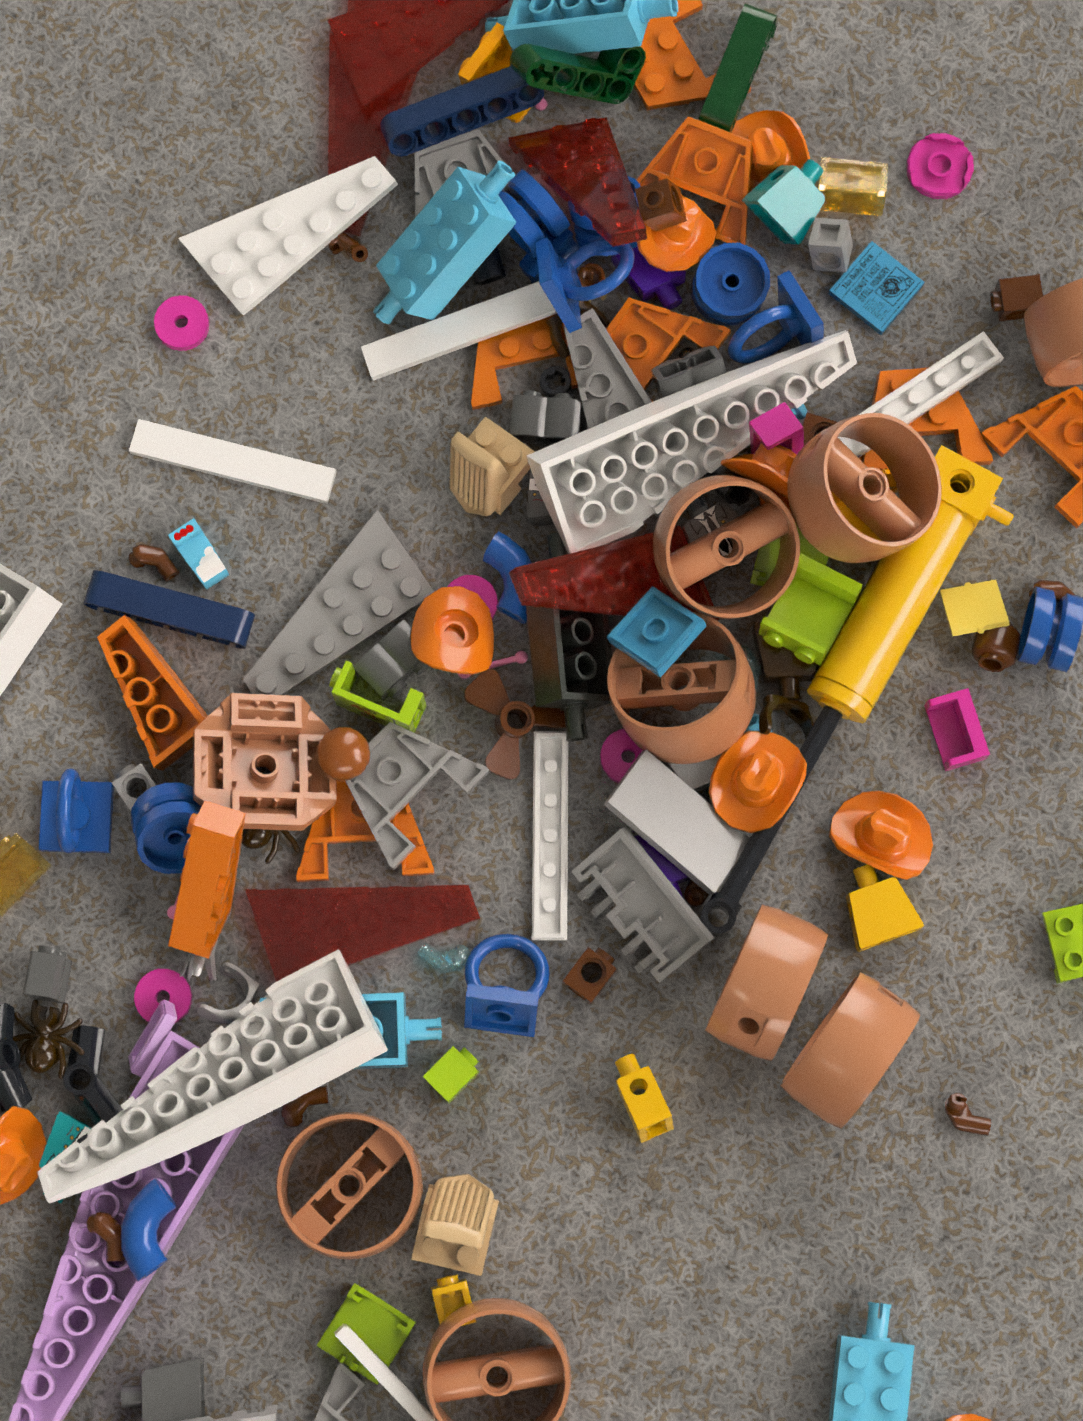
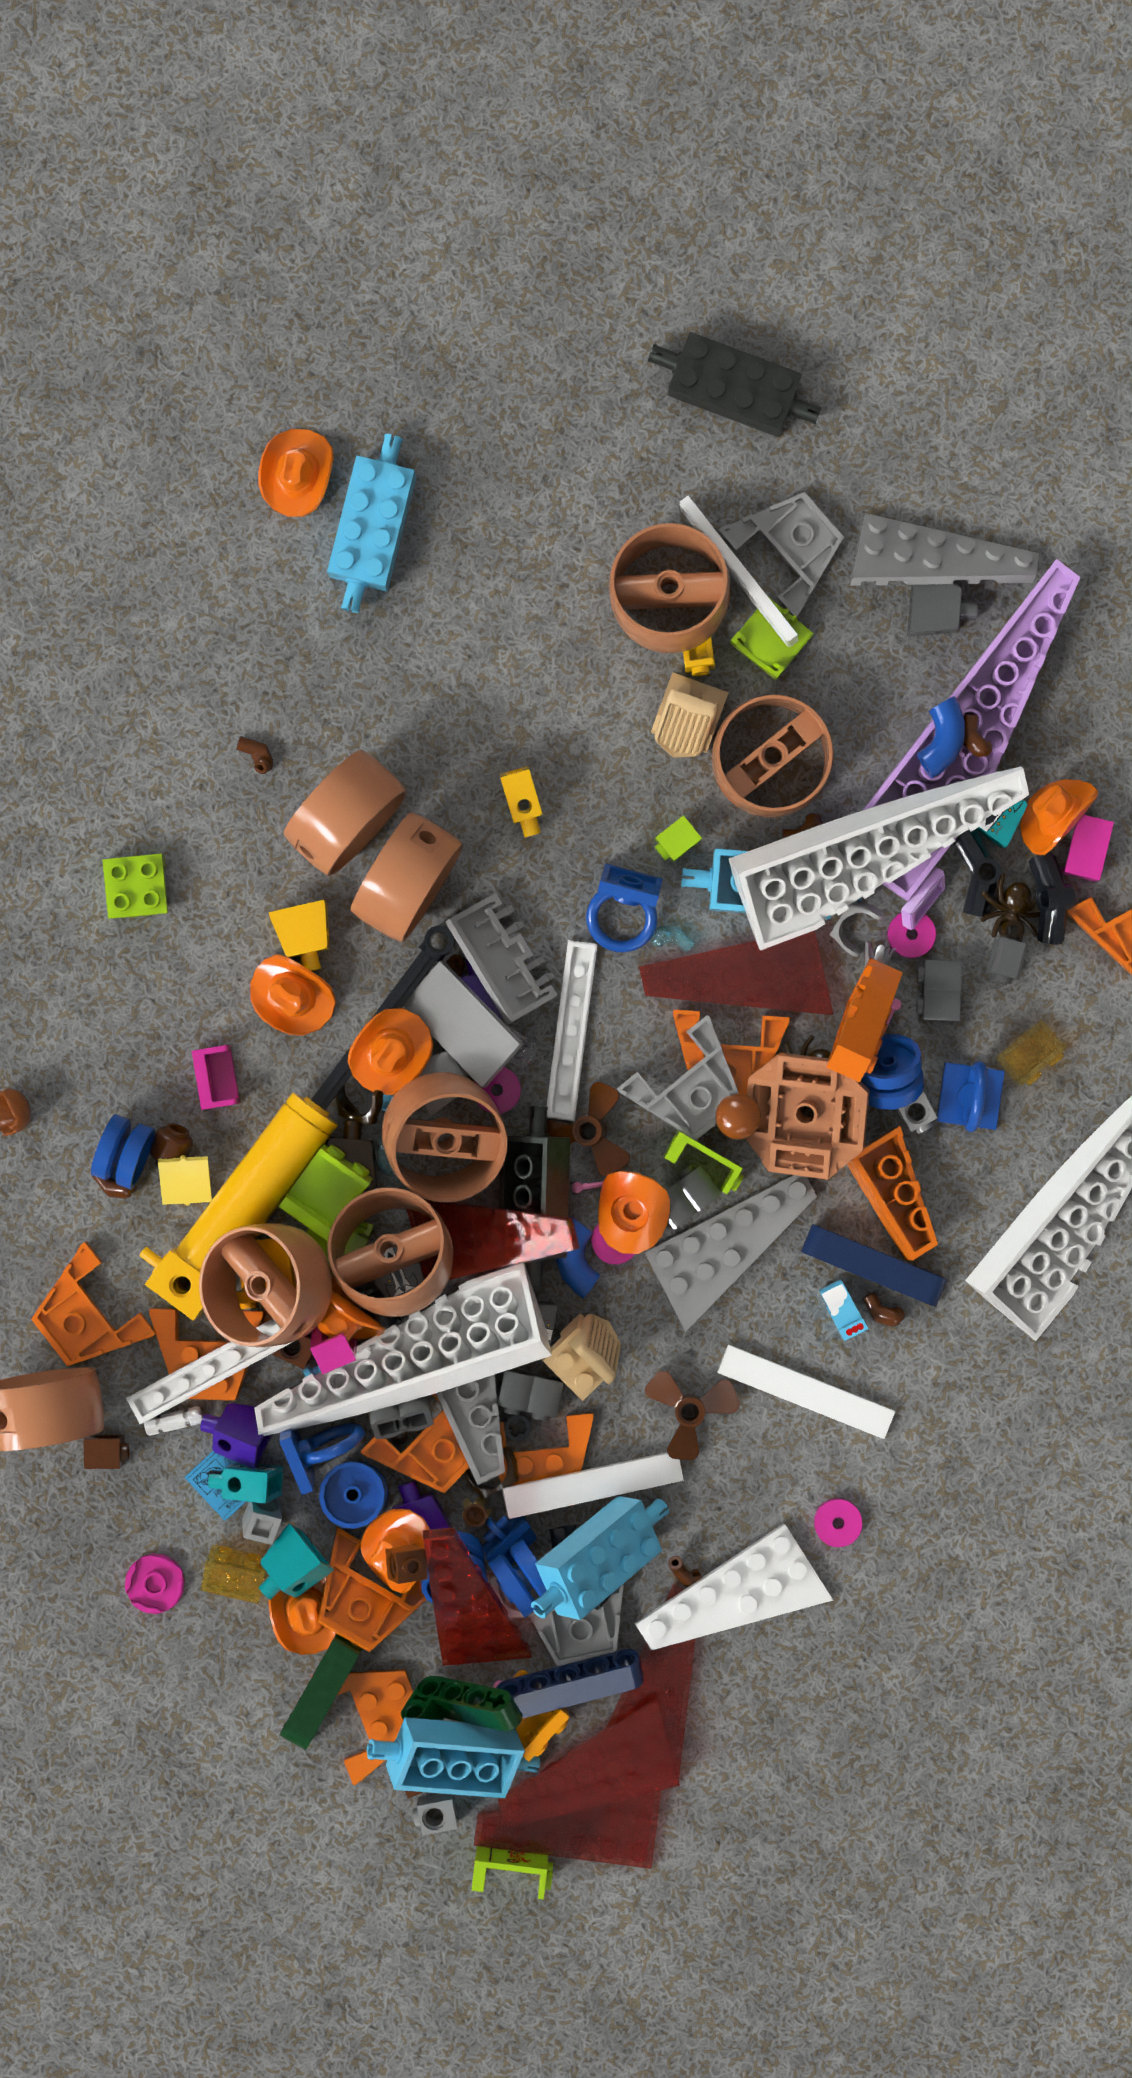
camera: 170 degrees left, 10 degrees up
(122, 933) = (939, 990): none -> dark grey brick
(333, 437) = (718, 1399): none -> reddish brown piece
(562, 282) = (501, 1507): blue tile -> none
(582, 988) = (555, 894): reddish brown brick -> none
(656, 631) = (459, 1185): dark azure tile -> none
(850, 281) = (248, 1484): none -> teal torso
(873, 332) = (236, 1434): none -> dark purple torso
(944, 342) = (173, 1420): none -> white axle

